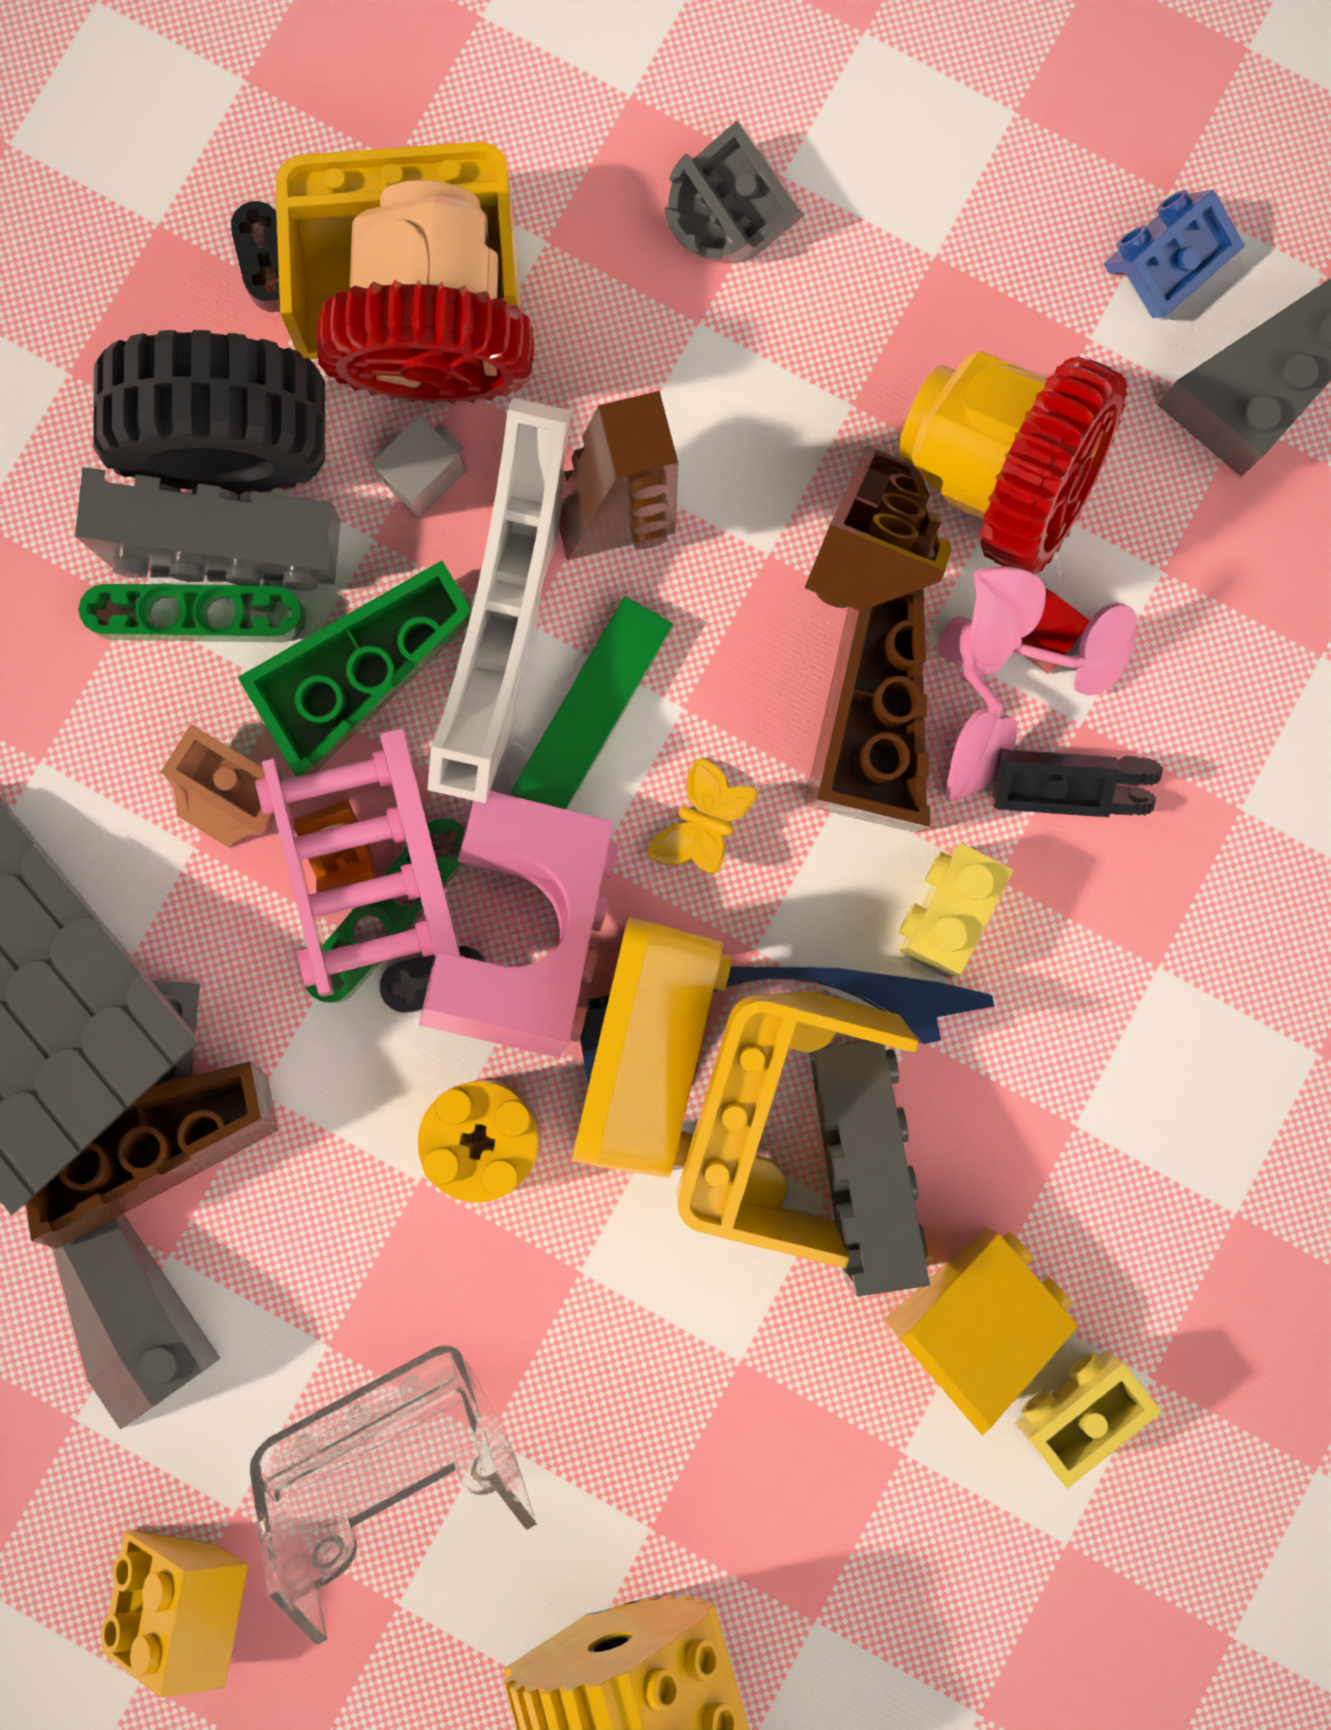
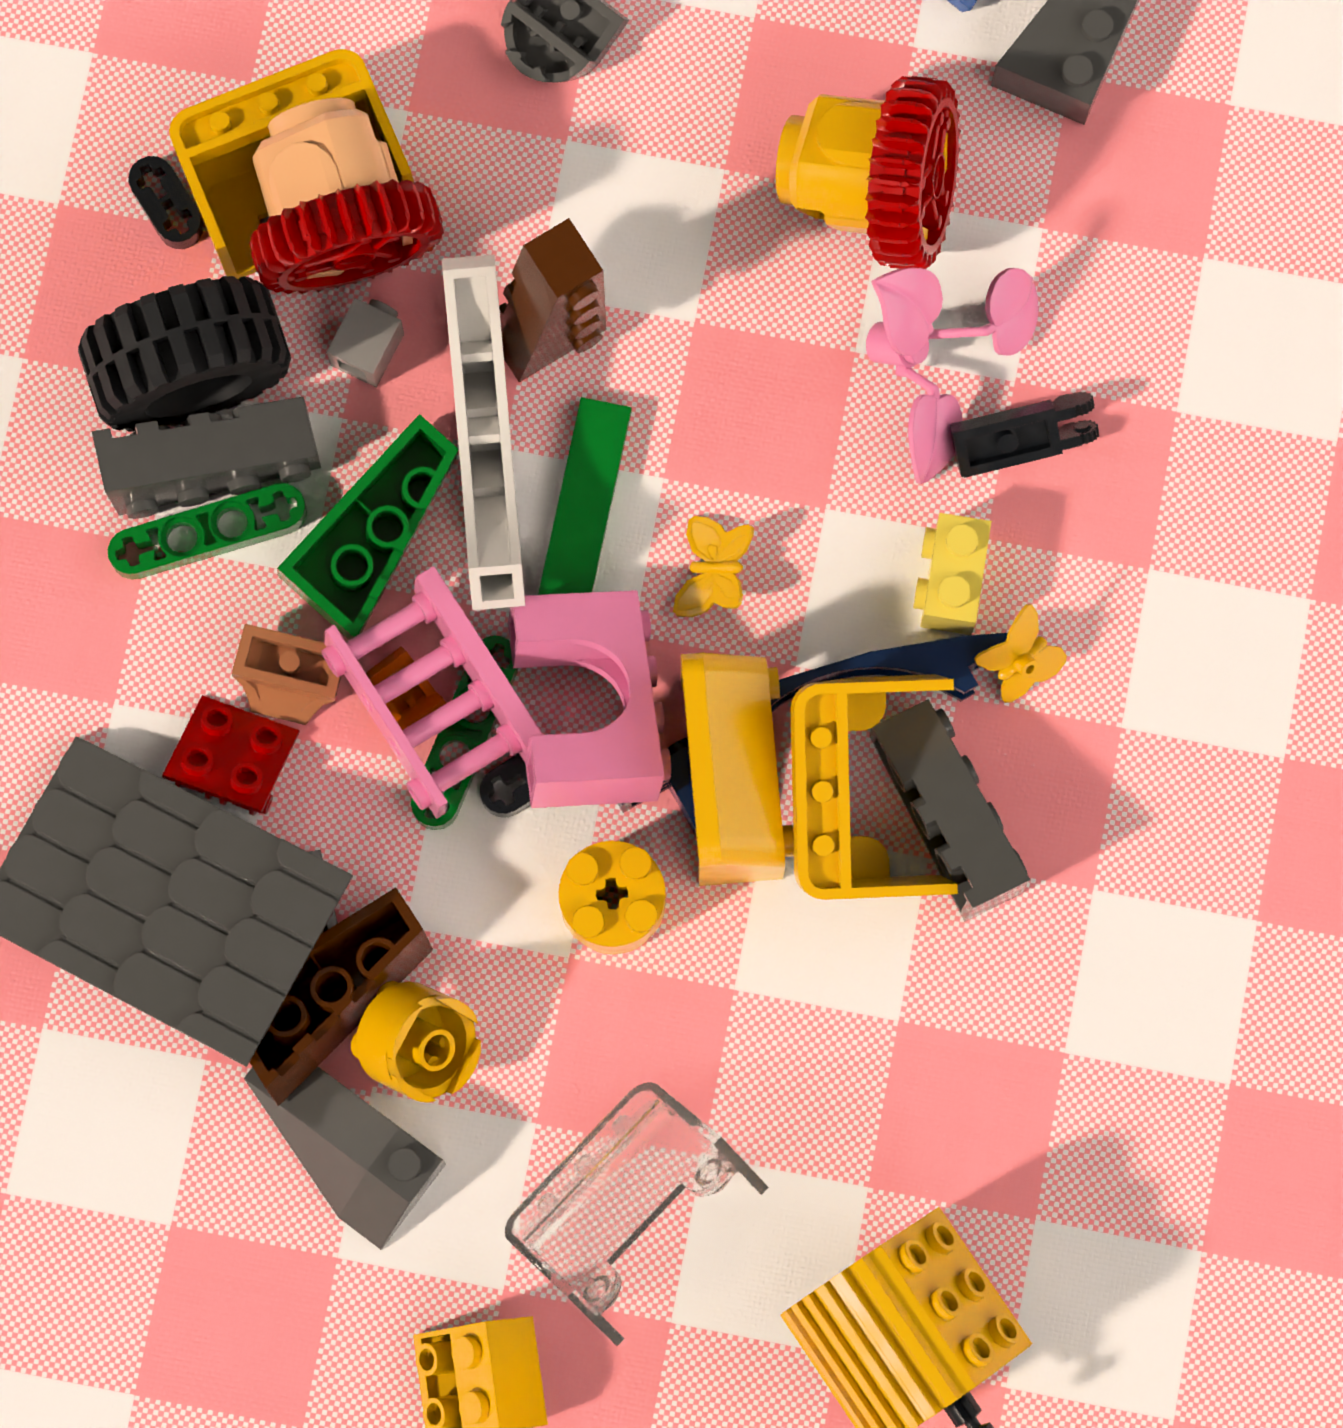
camera: 15 degrees left, 5 degrees down
(136, 857) = (231, 755): none -> red hinge
(219, 1233) = (417, 1041): none -> yellow brick
(873, 724) = (833, 440): reddish brown wedge -> none
(880, 538) = (786, 276): reddish brown wedge -> none
(984, 1326) = (1092, 913): yellow slope -> none
(999, 1025) = (1022, 656): none -> yellow piece
(1056, 630) = (961, 307): red slope -> none
(1086, 1416) = (1204, 961): light yellow brick -> none

